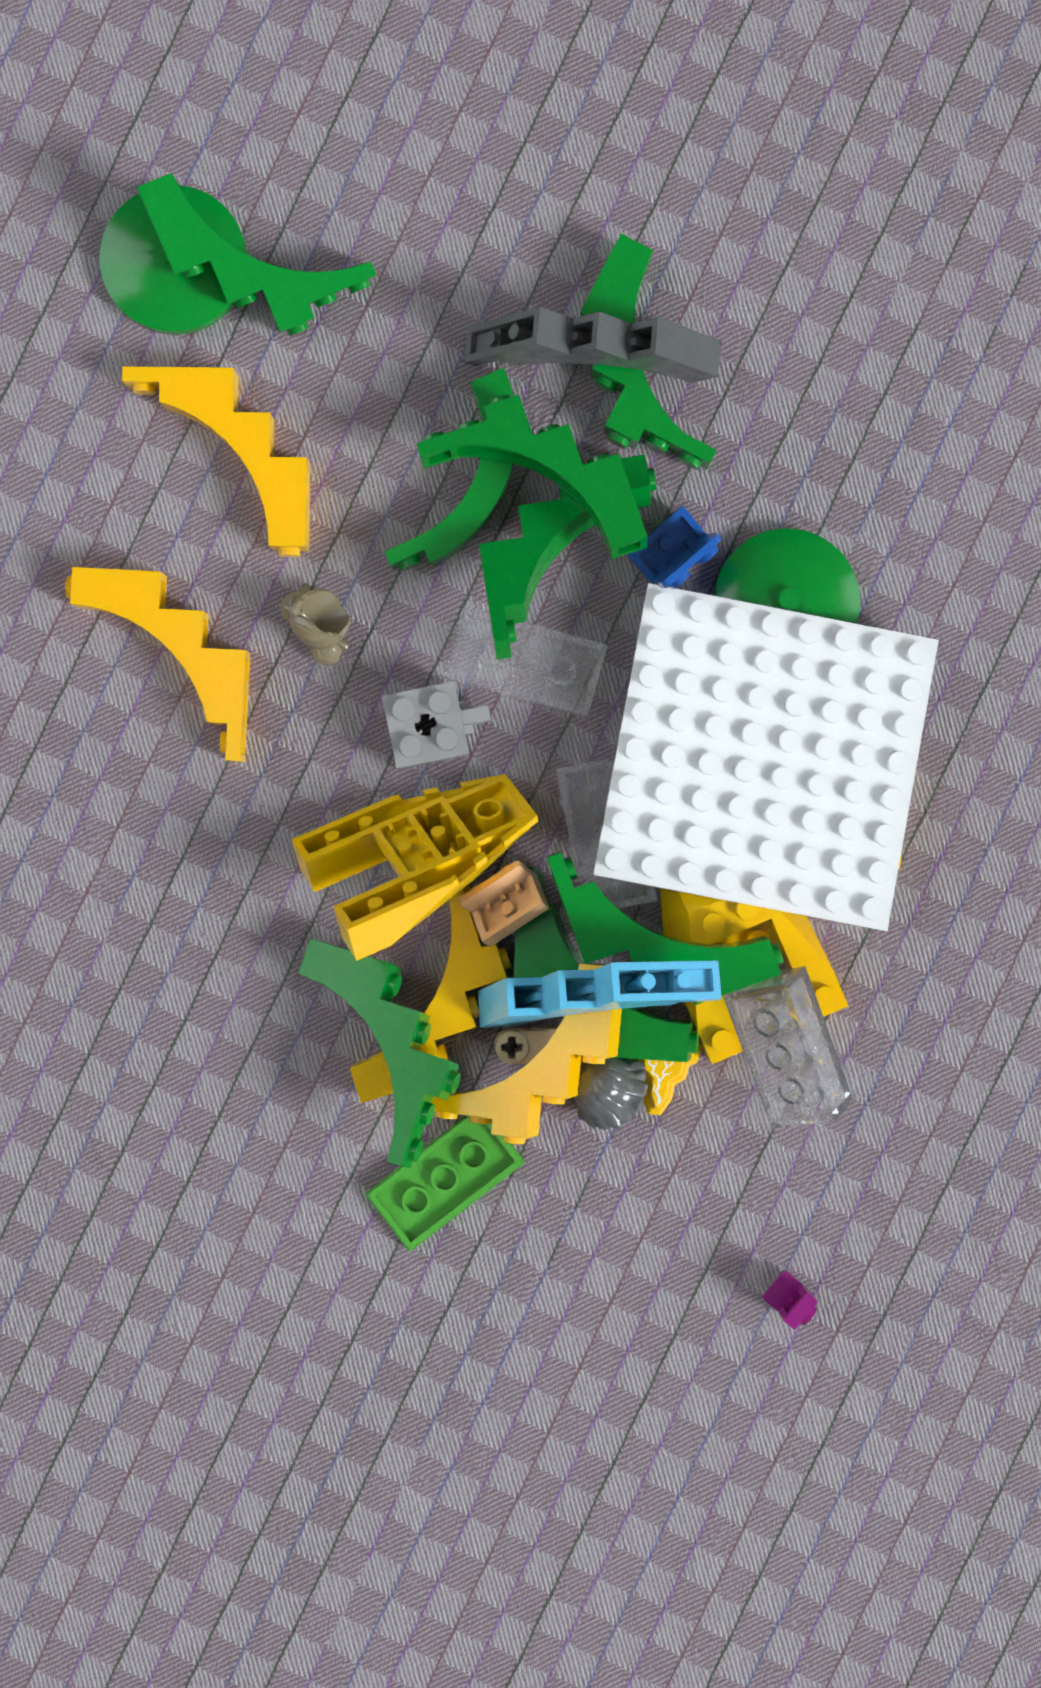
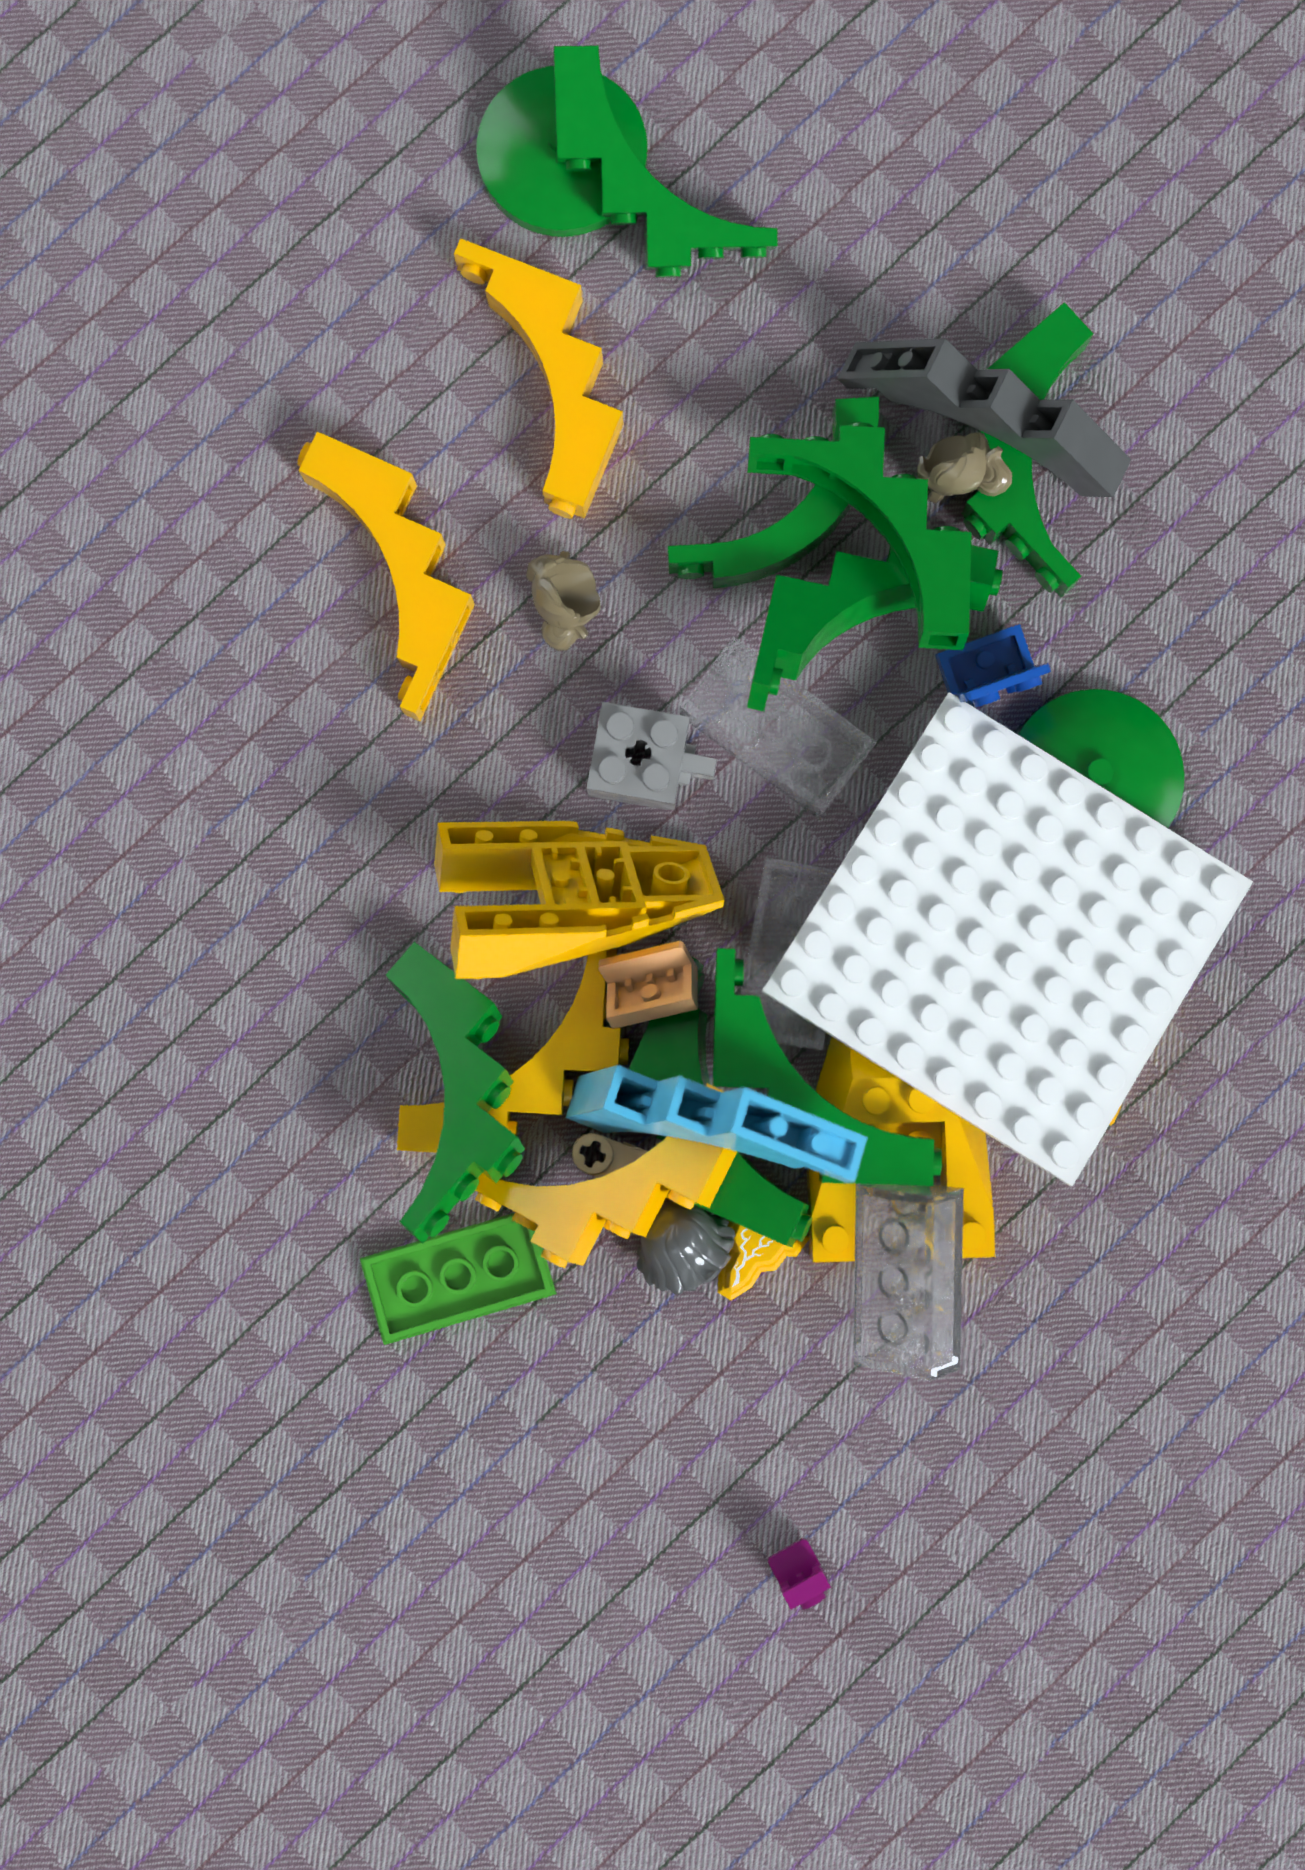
camera: 25 degrees right, 5 degrees down
(590, 397) = (963, 465): none -> dark tan hair

